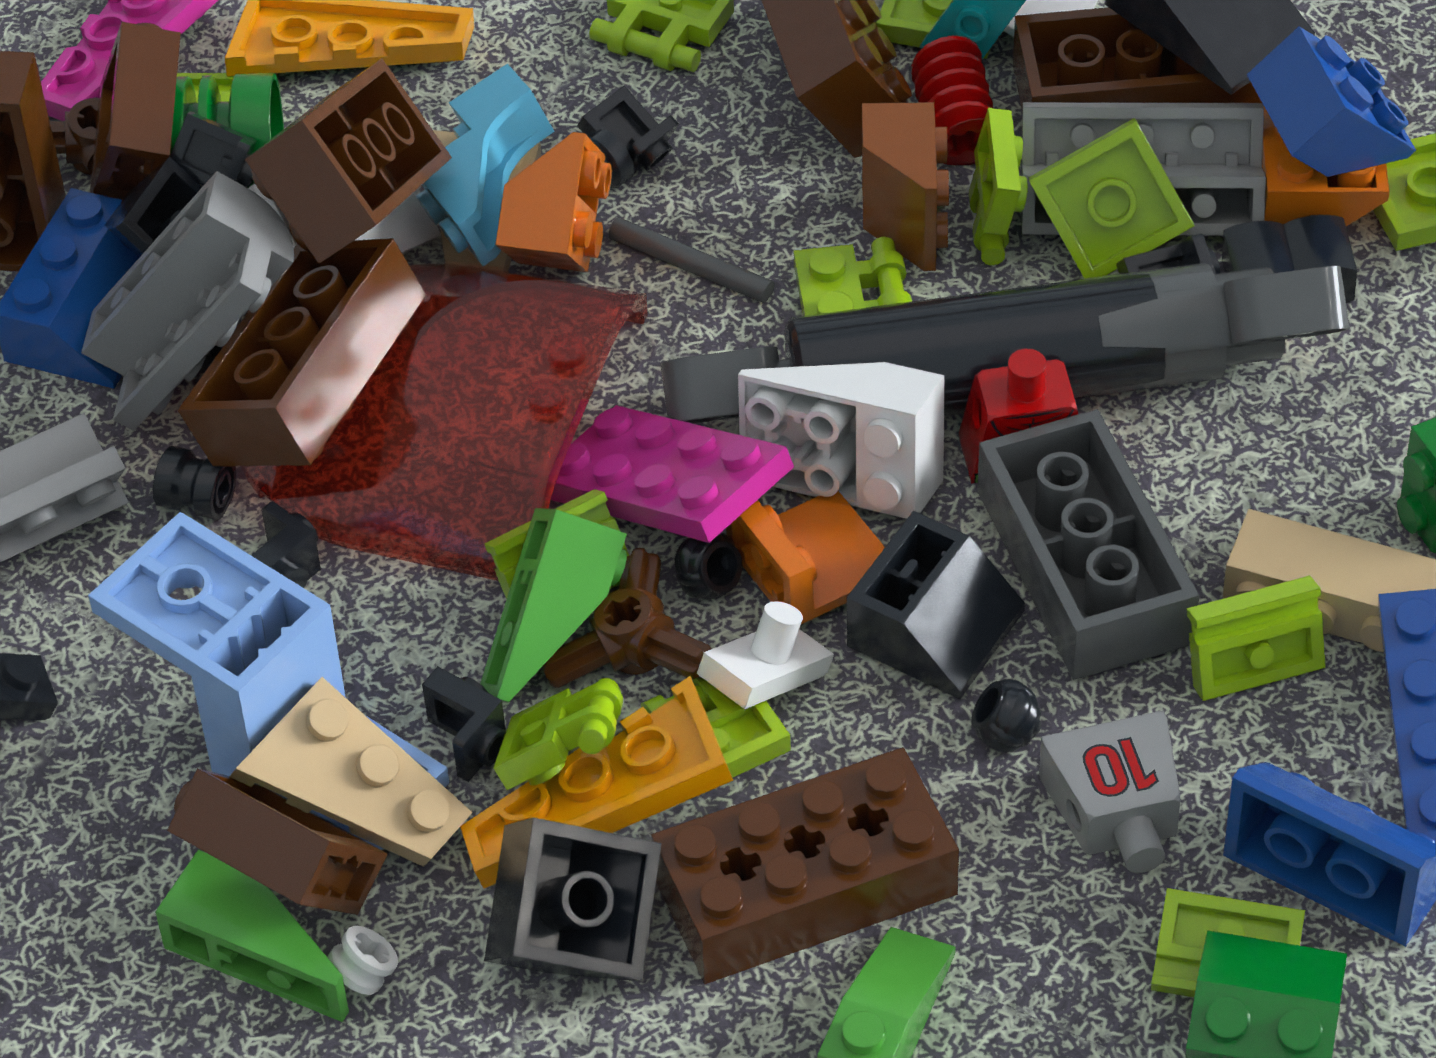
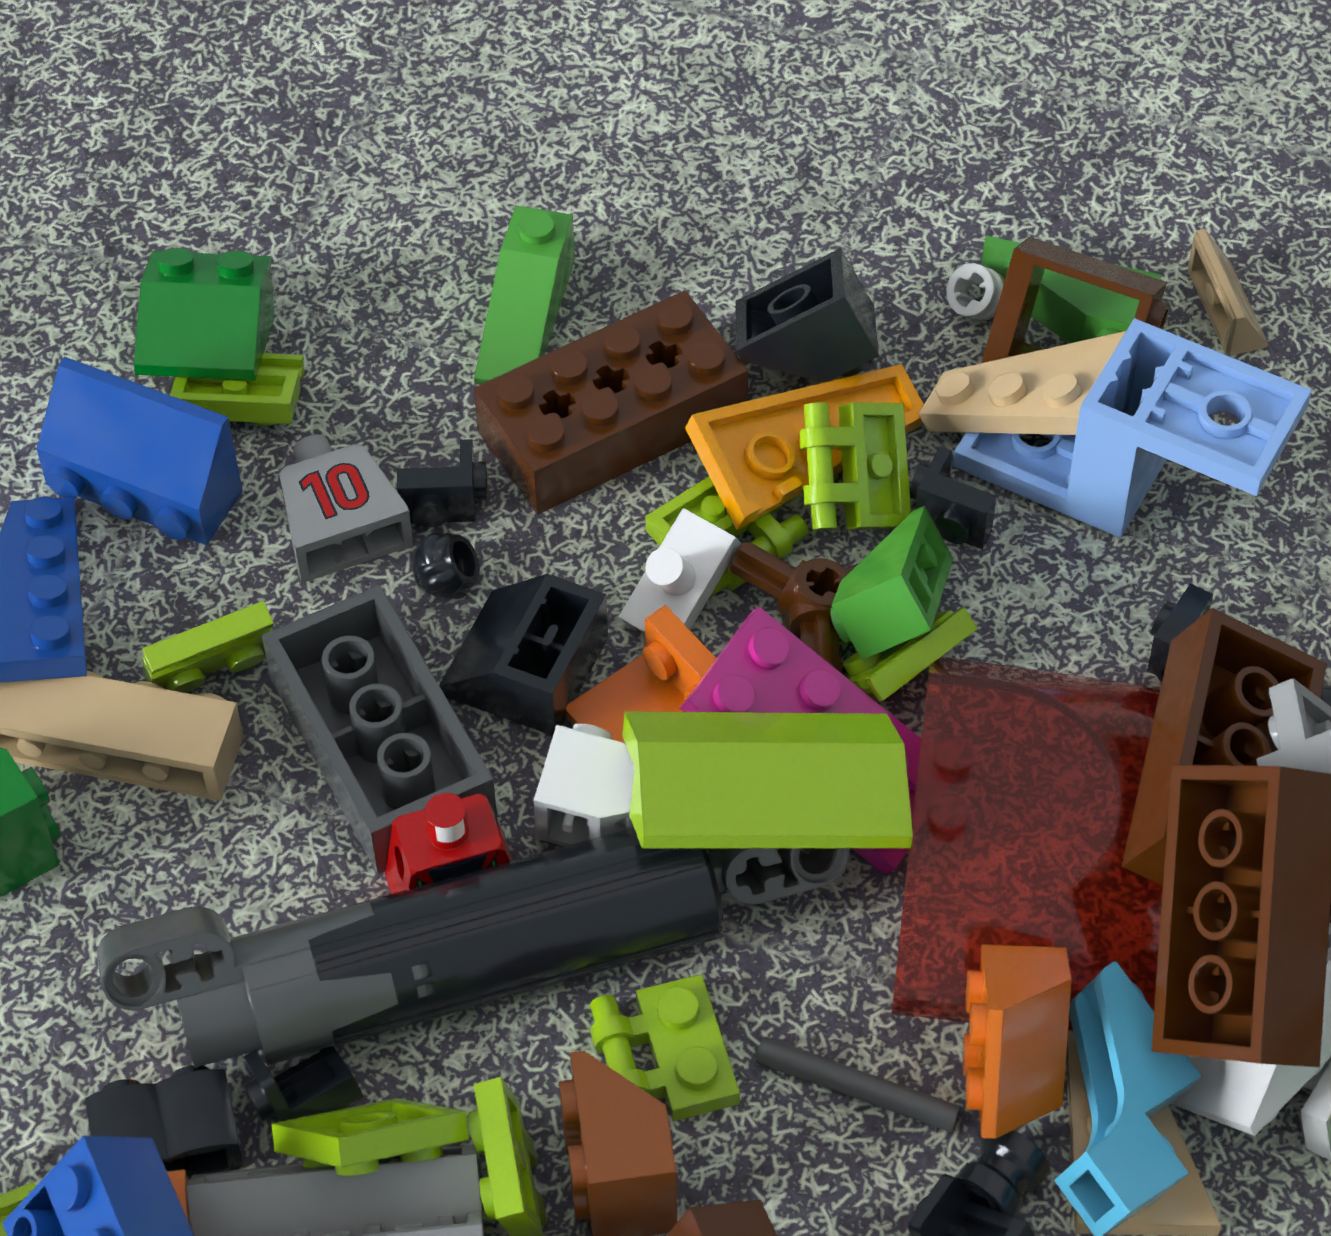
camera: 170 degrees right, 5 degrees up
(81, 932) = (1223, 297): none -> tan slope
(725, 371) = (767, 780): none -> lime slope
(1002, 789) = (444, 493): none -> black bracket

